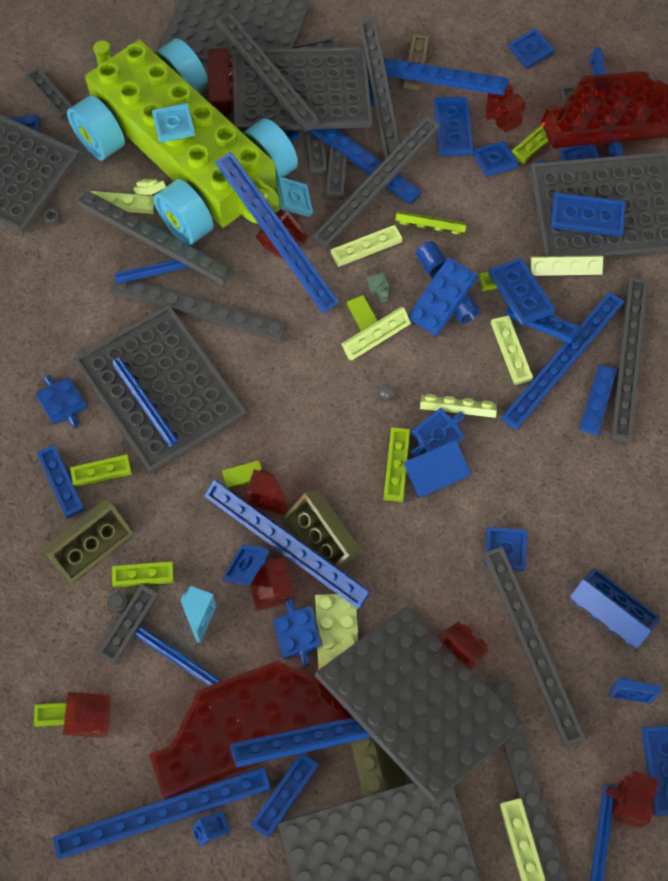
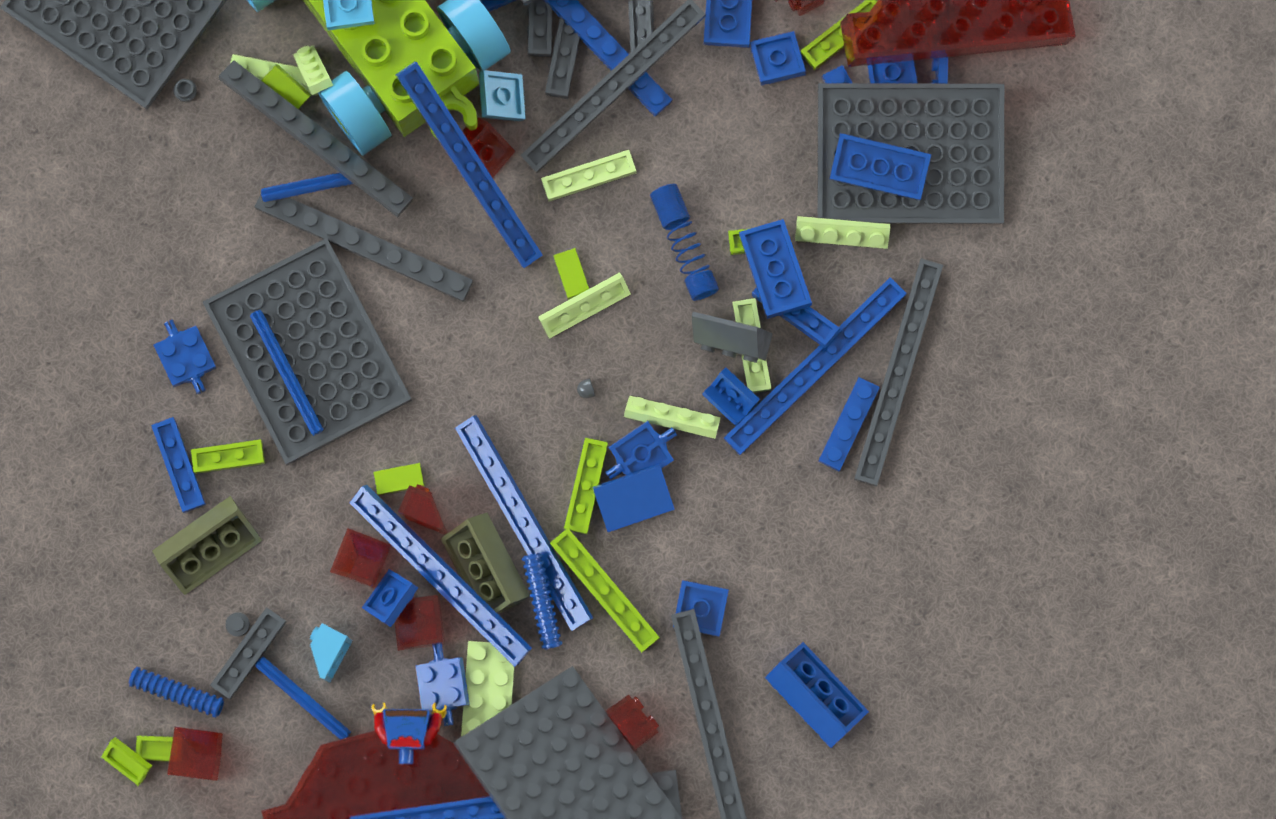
camera: 10 degrees right, 15 degrees up
(26, 727) = (126, 761): none -> lime tile
(67, 663) = (176, 692): none -> blue piece
(128, 204) = (286, 86): none -> lime tile
(142, 574) = (269, 594): lime plate -> none
(217, 540) = (360, 558): none -> clear red slope
(272, 667) = (407, 729): none -> torso
(351, 498) = (523, 521): none -> plate
(373, 555) = (542, 601): none -> blue piece
(379, 286) = (597, 234): sand green plate -> none
(423, 221) = (677, 148): lime plate -> none
(424, 542) = (604, 590): none -> lime plate
(442, 296) = (673, 267): blue plate -> none
(496, 338) = (730, 337): none -> dark grey slope
(503, 385) = (731, 396): none -> blue bracket
(631, 690) = (807, 794): blue plate -> none

